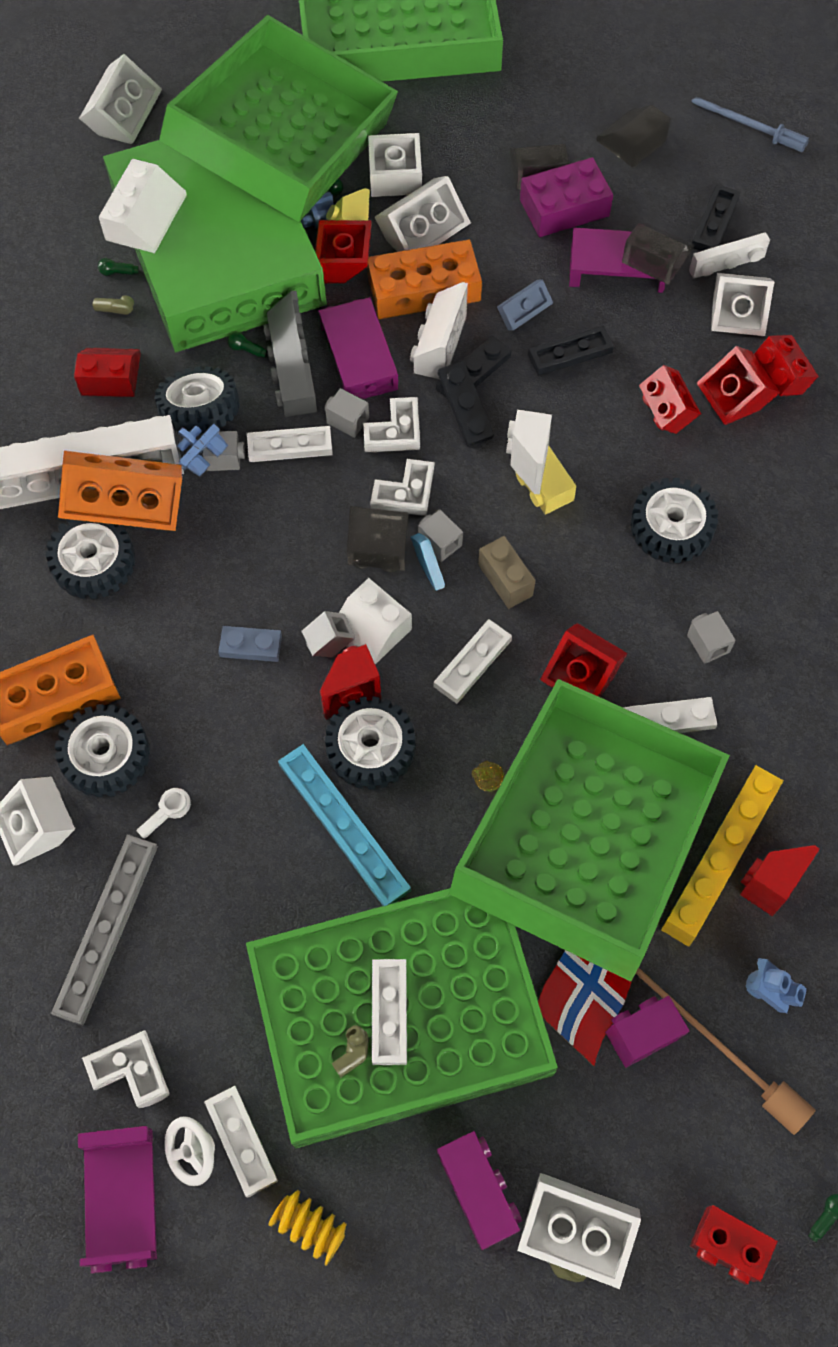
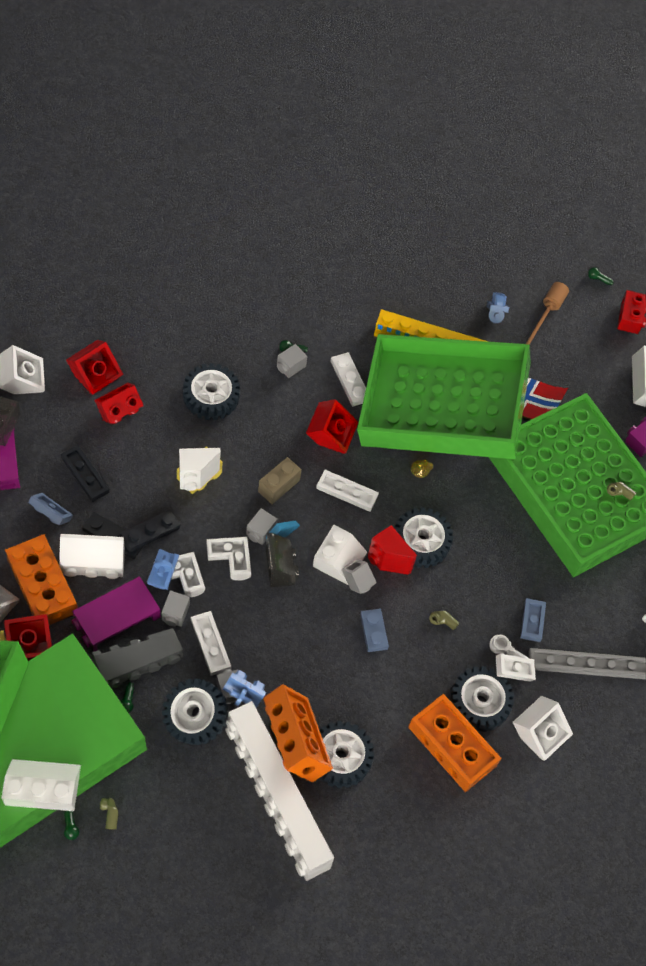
camera: 115 degrees left, 5 degrees down
(107, 372) = (173, 795): red slope -> none
(125, 802) = (515, 667): none -> white plate
(196, 861) = (533, 620): none -> sand blue plate
(240, 737) = (443, 617): none -> olive arm
(344, 826) = (479, 542): medium azure plate -> none
(389, 1012) = (592, 475): white plate -> none
(394, 392) = (163, 569): none -> medium blue hips
(646, 1030) = (546, 363): magenta brick -> none
(742, 639) = (285, 344): none -> dark green piece
(773, 879) = (437, 305): red slope -> none
(786, 365) = (72, 338): red brick -> none

